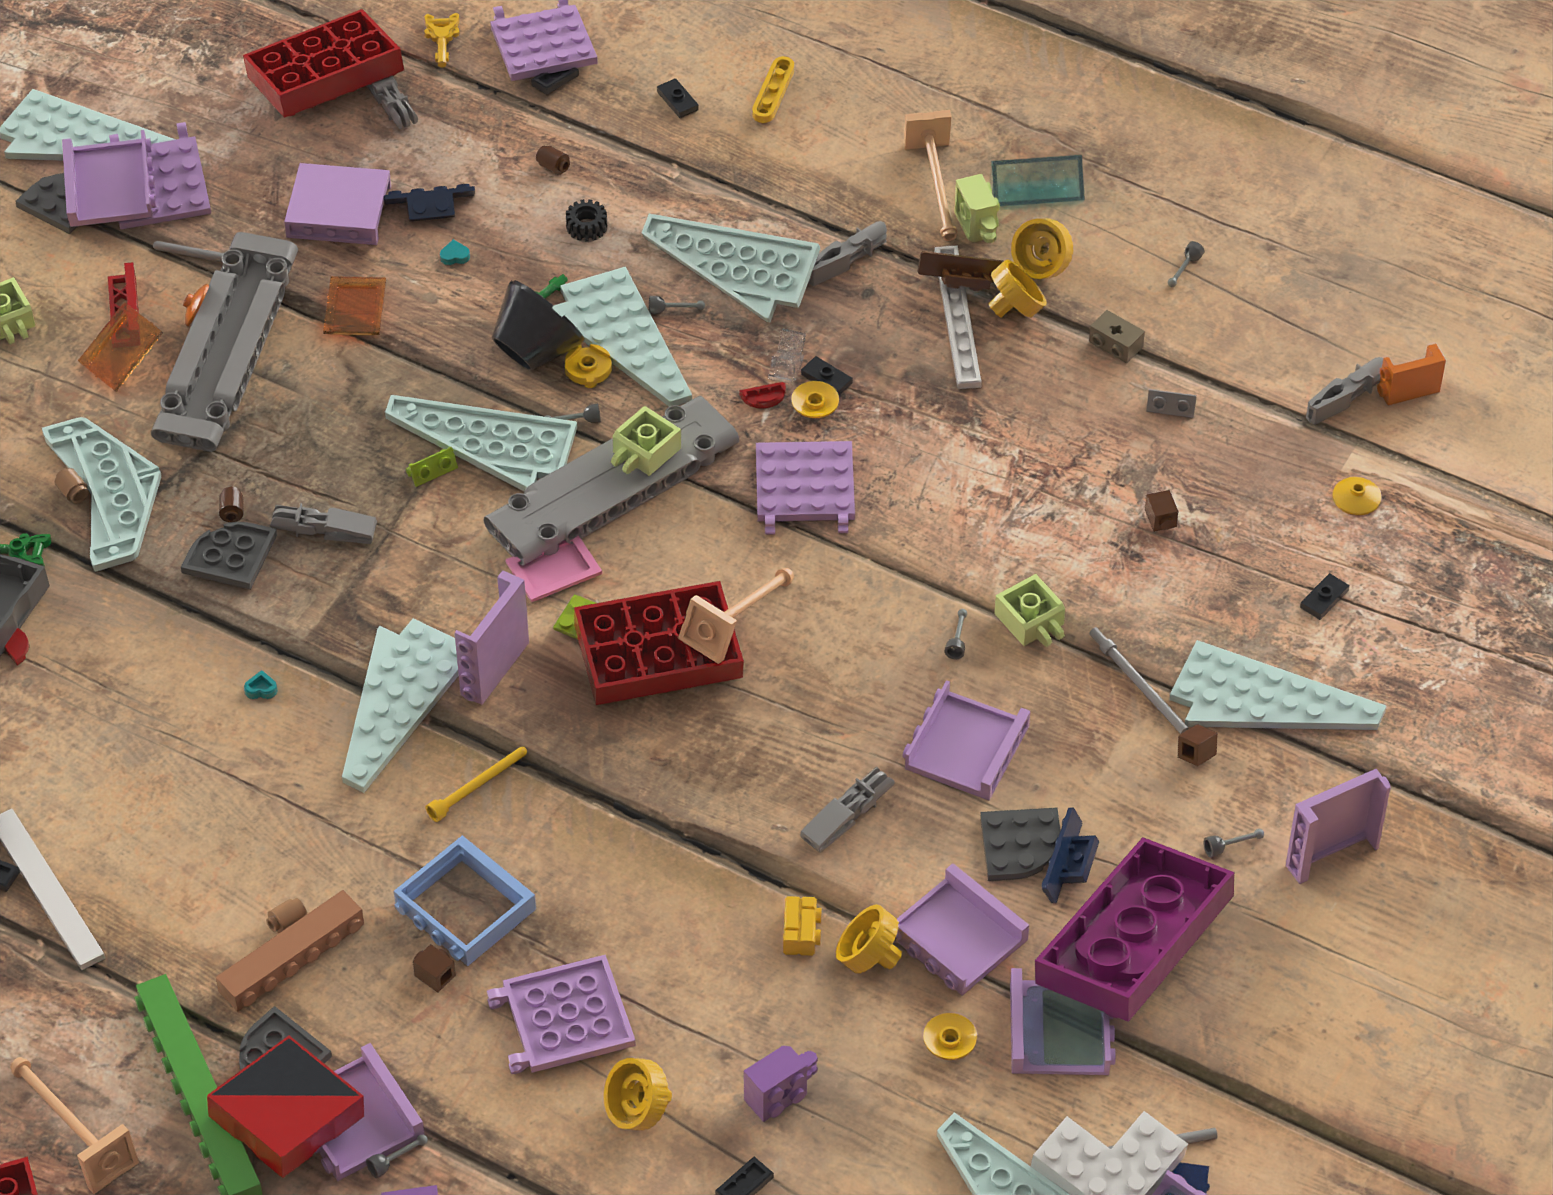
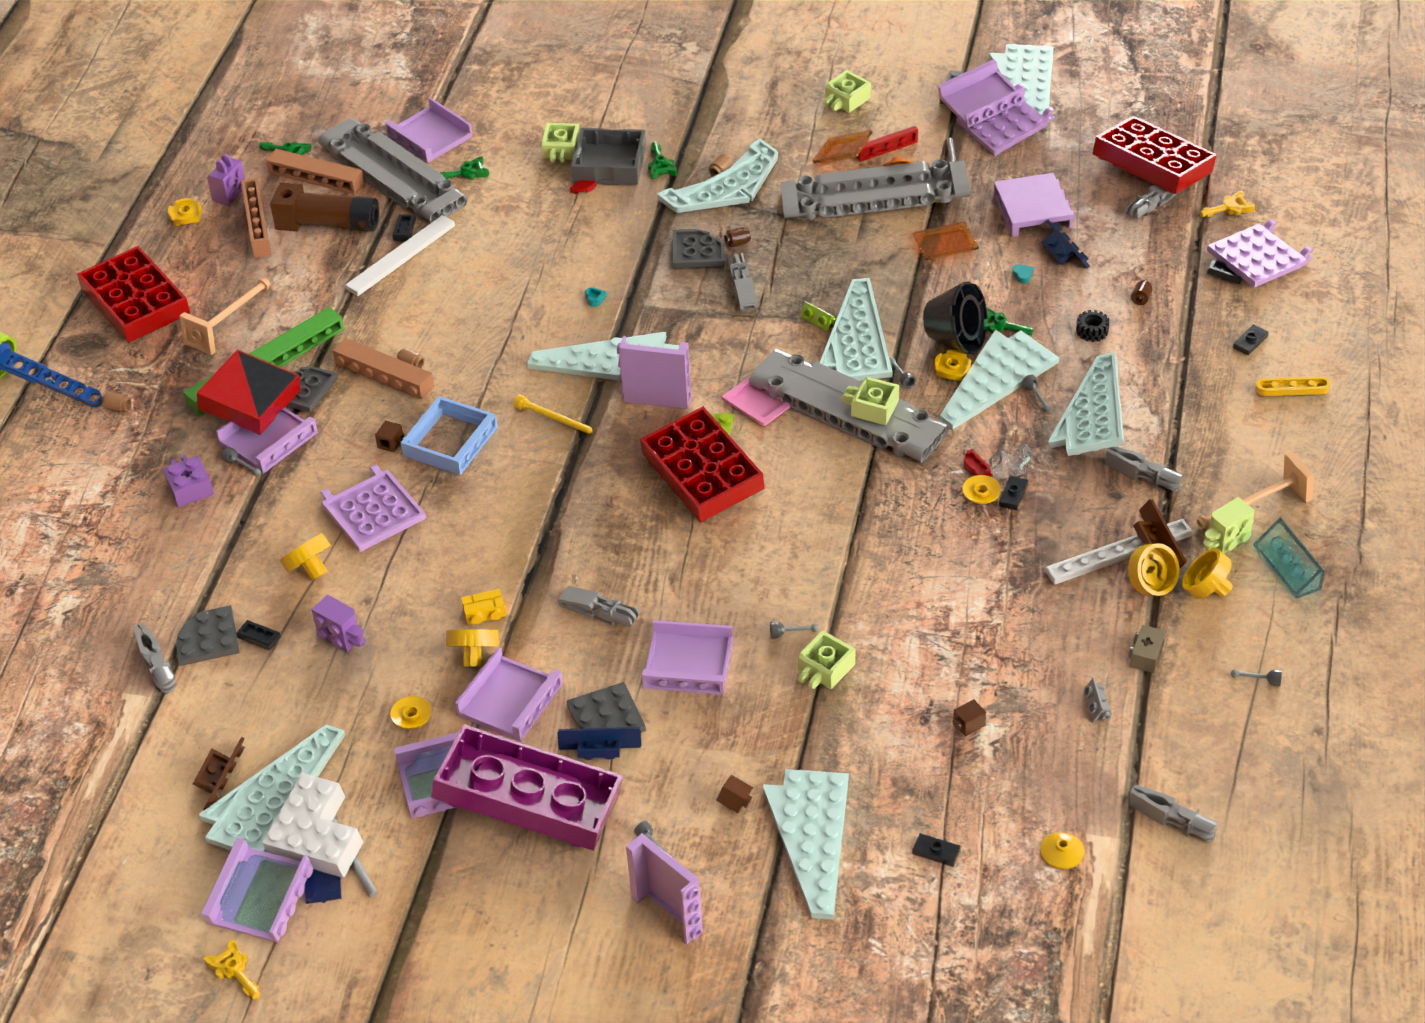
camera: 75 degrees right, 5 degrees down
(711, 629) = (705, 472): light nougat tile -> none
(805, 482) = (899, 508): lavender plate -> none
(1109, 648) = (816, 722): light grey bar -> none
(1412, 378) = (1205, 854): orange panel -> none

